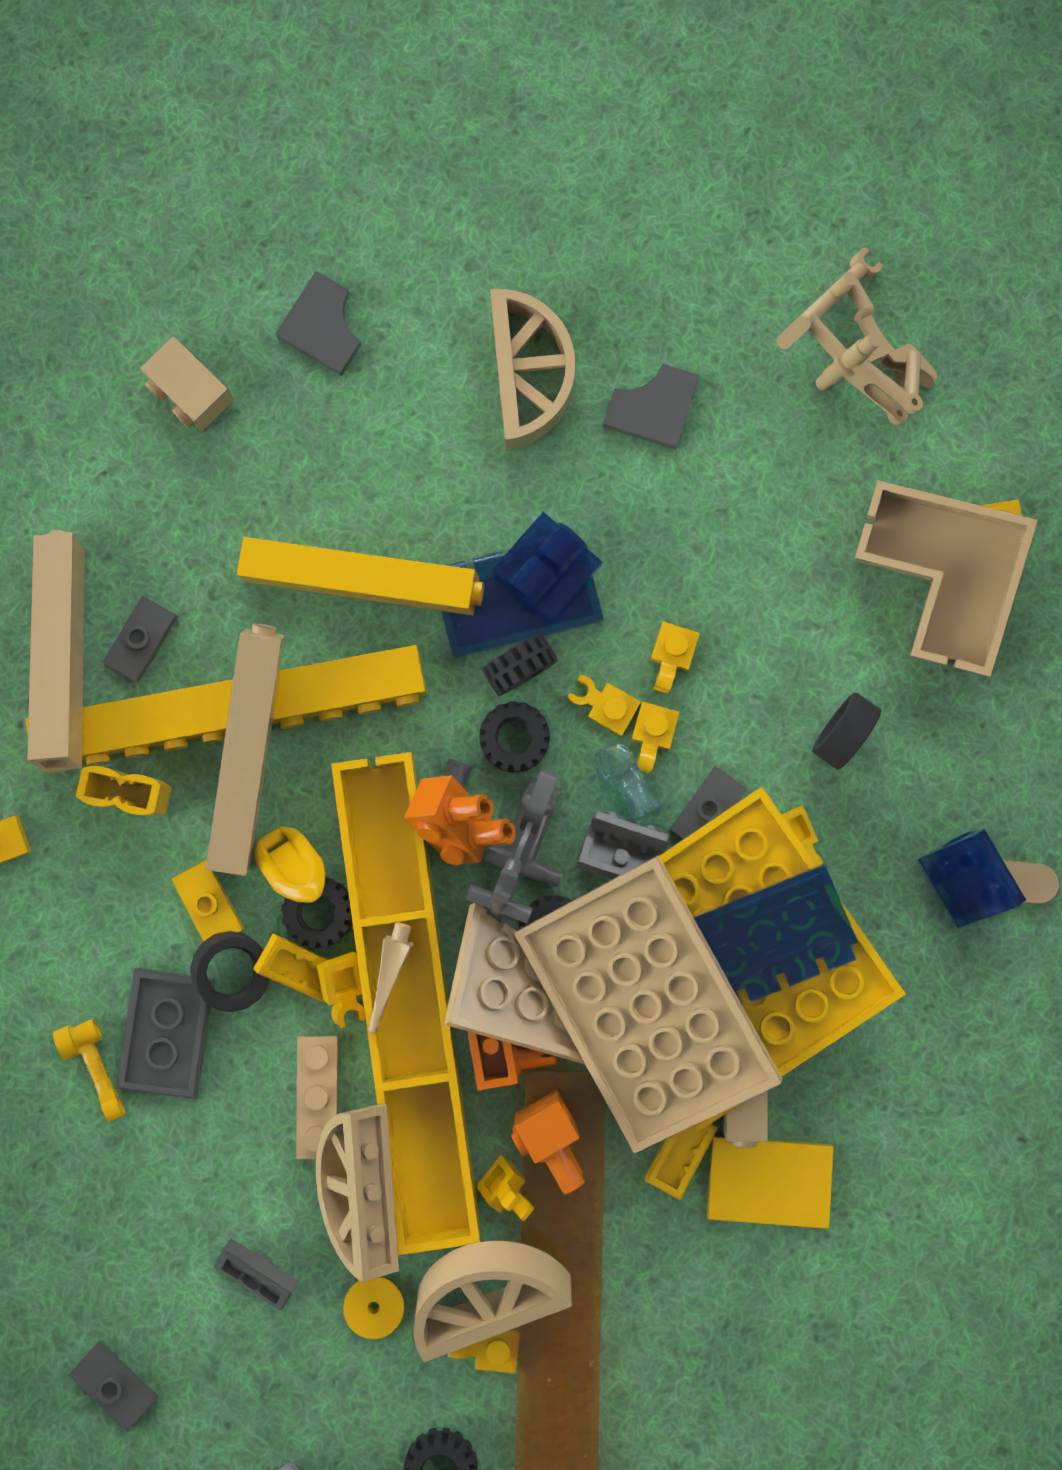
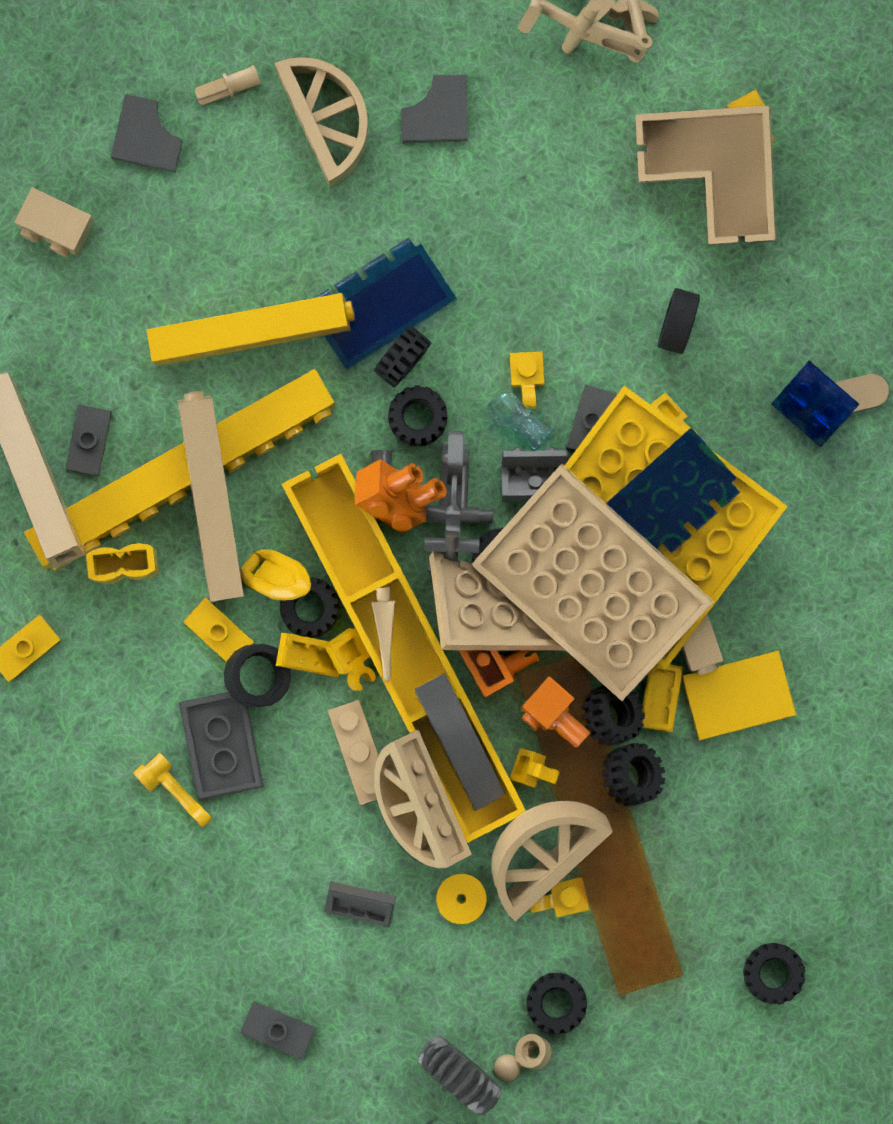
camera: 20 degrees left, 0 degrees up
(429, 1133) = (459, 742): none -> dark grey slope
(431, 299) = (227, 85): none -> tan axle
(547, 566) = (397, 271): clear blue plate -> none
(601, 1162) = (600, 721): none -> black tyre
(610, 707) = (486, 367): yellow plate -> none
(635, 1242) = (648, 773): none -> black tyre
(673, 651) = (521, 304): yellow plate -> none

